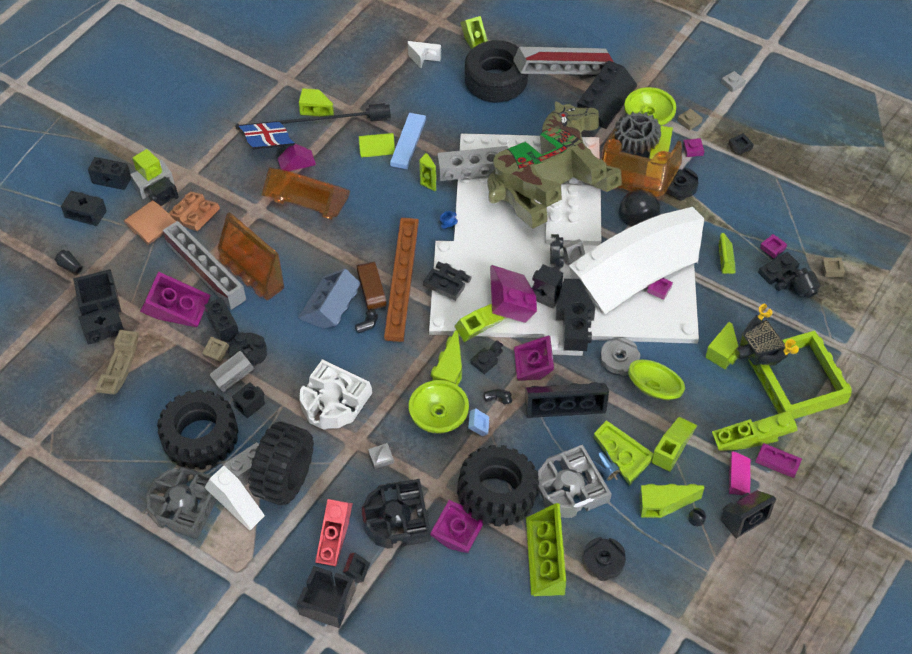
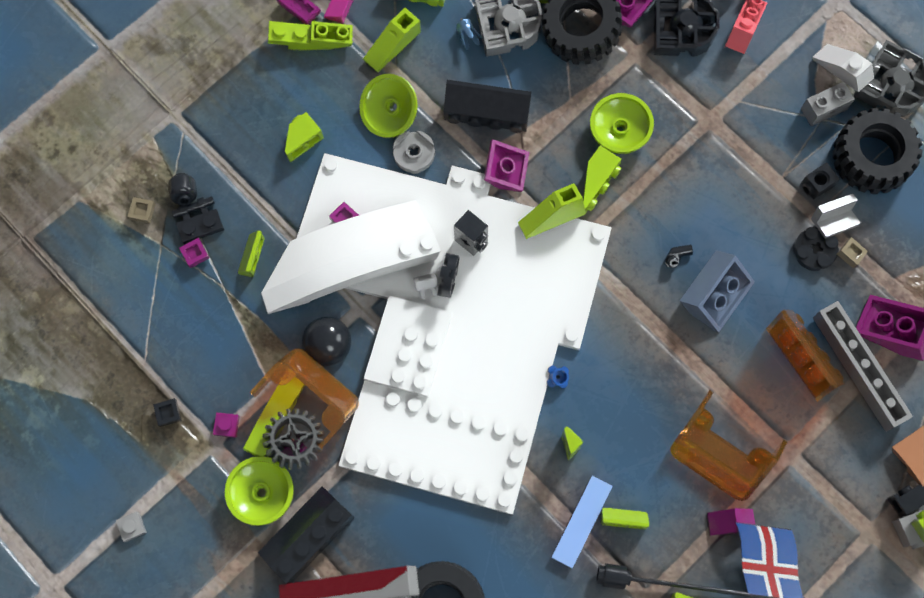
camera: 165 degrees left, 20 degrees up
(193, 211) = (869, 465): nougat slope -> none
(221, 320) = (844, 284): black brick -> none
(281, 463) = (796, 72): black tyre -> none
(331, 386) = (728, 163): white connector -> none
(371, 285) = (666, 300): reddish brown beam -> none
(381, 456) = (688, 94): light grey tile -> none
(401, 280) = (628, 305): dark orange plate -> none
(445, 284) = (584, 275): black plate -> none
(467, 163) = (521, 450): light grey brick -> none
(478, 422) = (582, 104): light blue plate -> none
(486, 359) = (554, 181): black plate -> none
(498, 393) = (552, 135): black arm -> none
(511, 295) = (512, 236): magenta slope -> none
(527, 176) = (395, 431): olive animal -> none
(577, 313) = (443, 213): black brick -> none
(623, 451) = (445, 46): lime wing -> none
(685, 190) = (252, 364): black plate -> none
(690, 119) = (212, 473): dark tan plate -> none
(762, 343) = (265, 108): black torso -> none
(813, 405) = (239, 122): lime window -> none

